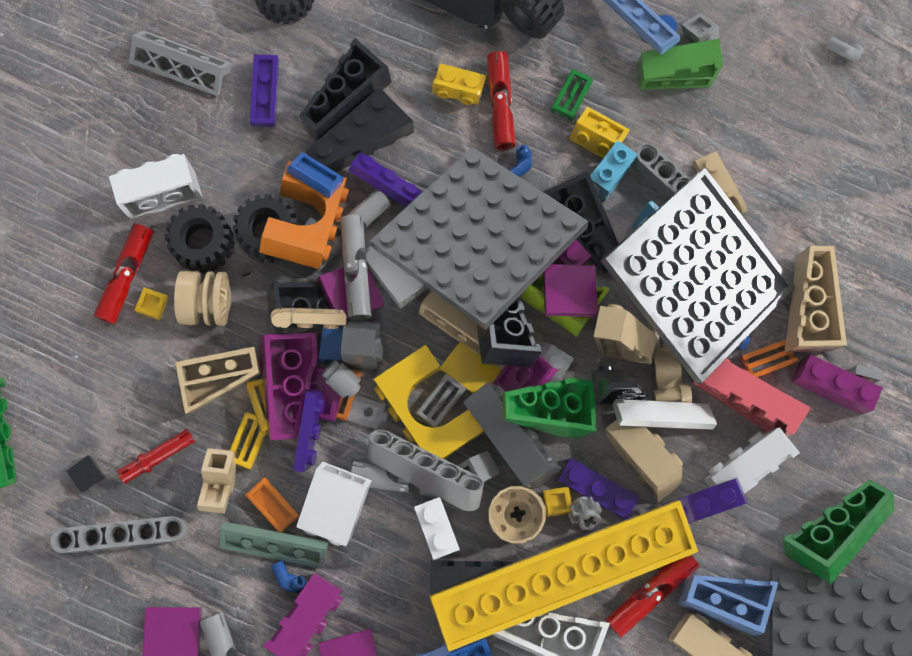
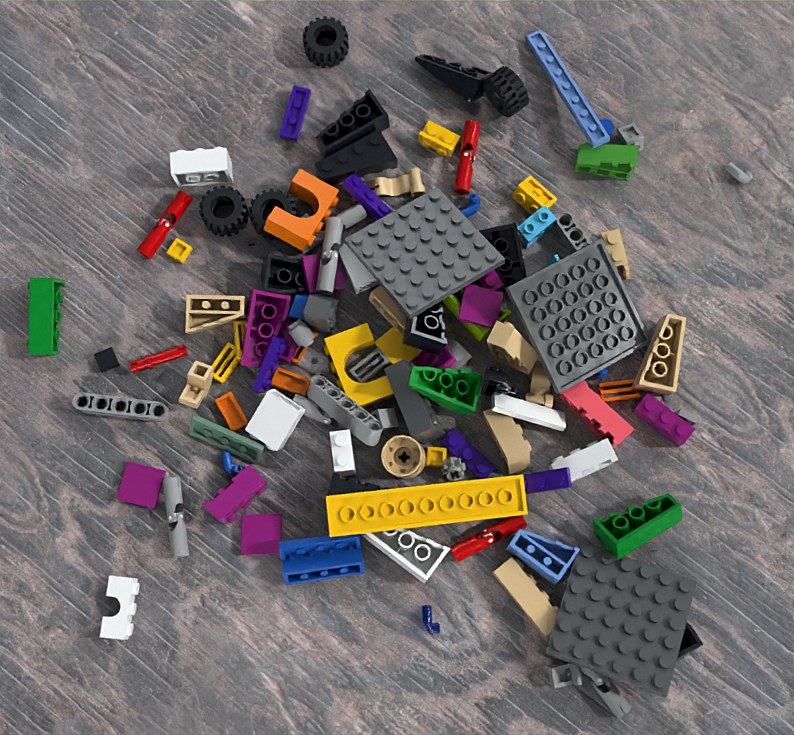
camera: 20 degrees right, 0 degrees up
(178, 53) = (238, 73): light grey fence -> none
(197, 297) = (216, 254): tan wheel -> none
(307, 317) = (286, 283): tan hinge -> none
(315, 174) = (316, 183): blue tile -> none
(342, 446) = (290, 382): none -> orange tile
(422, 155) = (398, 186): none -> tan flag
(564, 111) = (512, 175): green tile -> none

